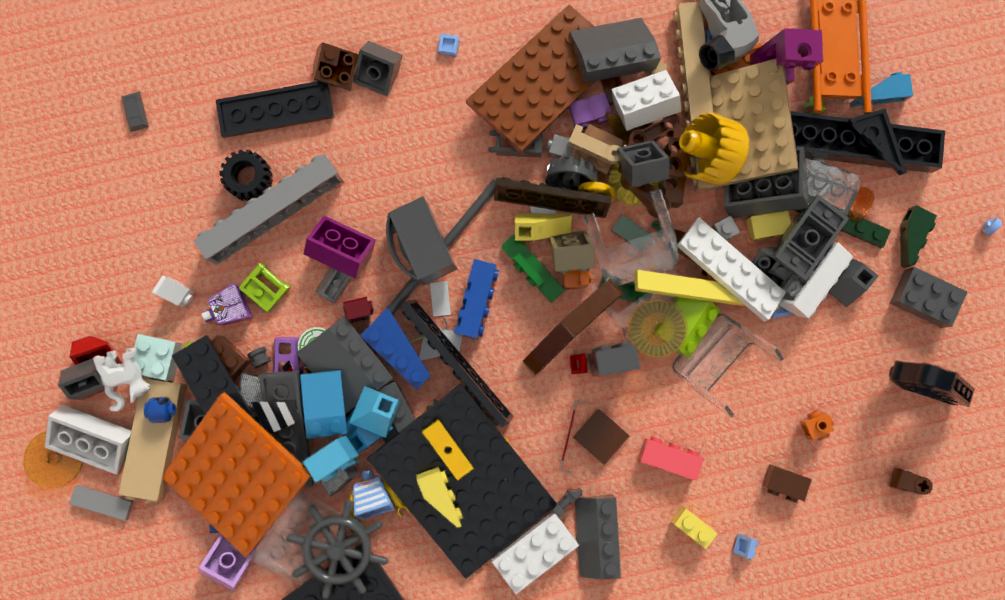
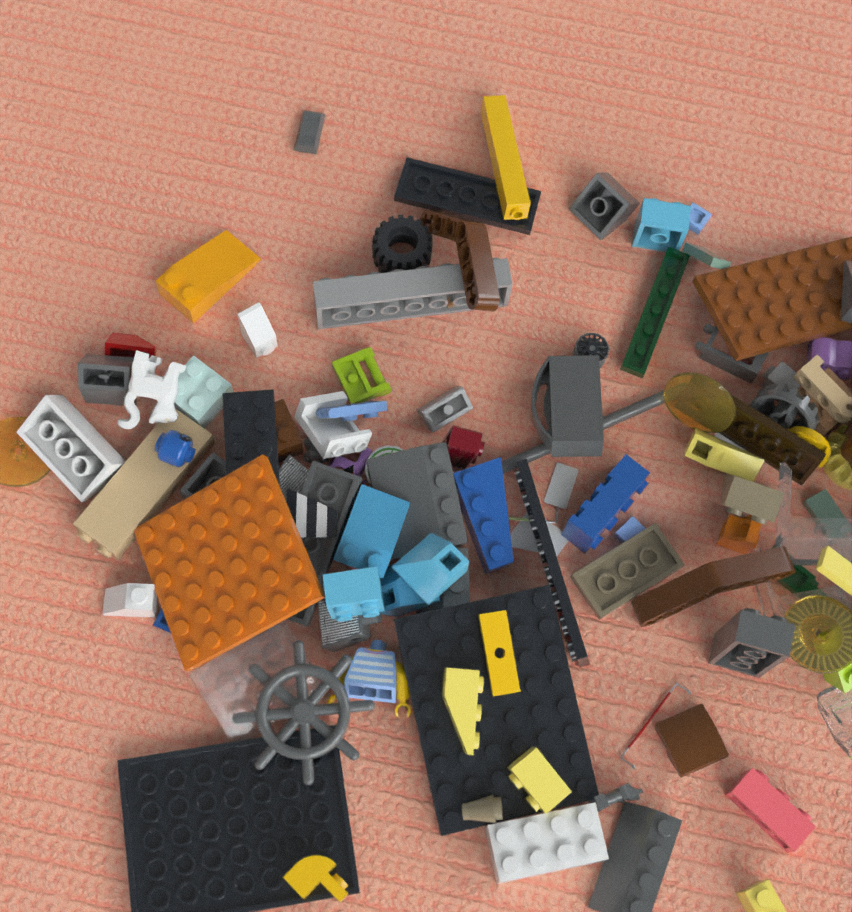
camera: 20 degrees right, 15 degrees down
(101, 502) = (44, 528): light grey tile -> none
(116, 262) = (206, 275): none -> light orange slope
(186, 525) = (131, 600): none -> white slope
(225, 564) = (154, 669): lavender slope -> none
(228, 306) = (308, 375): medium lavender torso -> none
(260, 338) = (330, 435): none -> white panel
(268, 321) = (350, 411): none -> medium blue hinge
(287, 66) = (505, 157): none -> yellow brick
(297, 165) = (473, 254): none -> reddish brown beam
(334, 66) = (558, 180): reddish brown slope -> none
(339, 247) = (473, 368): magenta brick -> none
(417, 188) = (591, 347): none -> dark grey wheel
(425, 67) = (661, 225): none -> medium azure brick
(450, 136) = (655, 312): none -> dark green plate
(468, 76) = (706, 256): none -> sand green tile
(486, 552) = (484, 809): none -> dark tan cone
(503, 311) = (629, 529): none -> light blue tile
(508, 197) = (699, 402): none -> clear yellow piece
(511, 340) = (627, 571): none -> dark tan plate
(511, 517) = (538, 780): none -> light yellow brick
(536, 273) = (689, 501): green bracket -> none
(578, 364) = (699, 637): red slope -> none

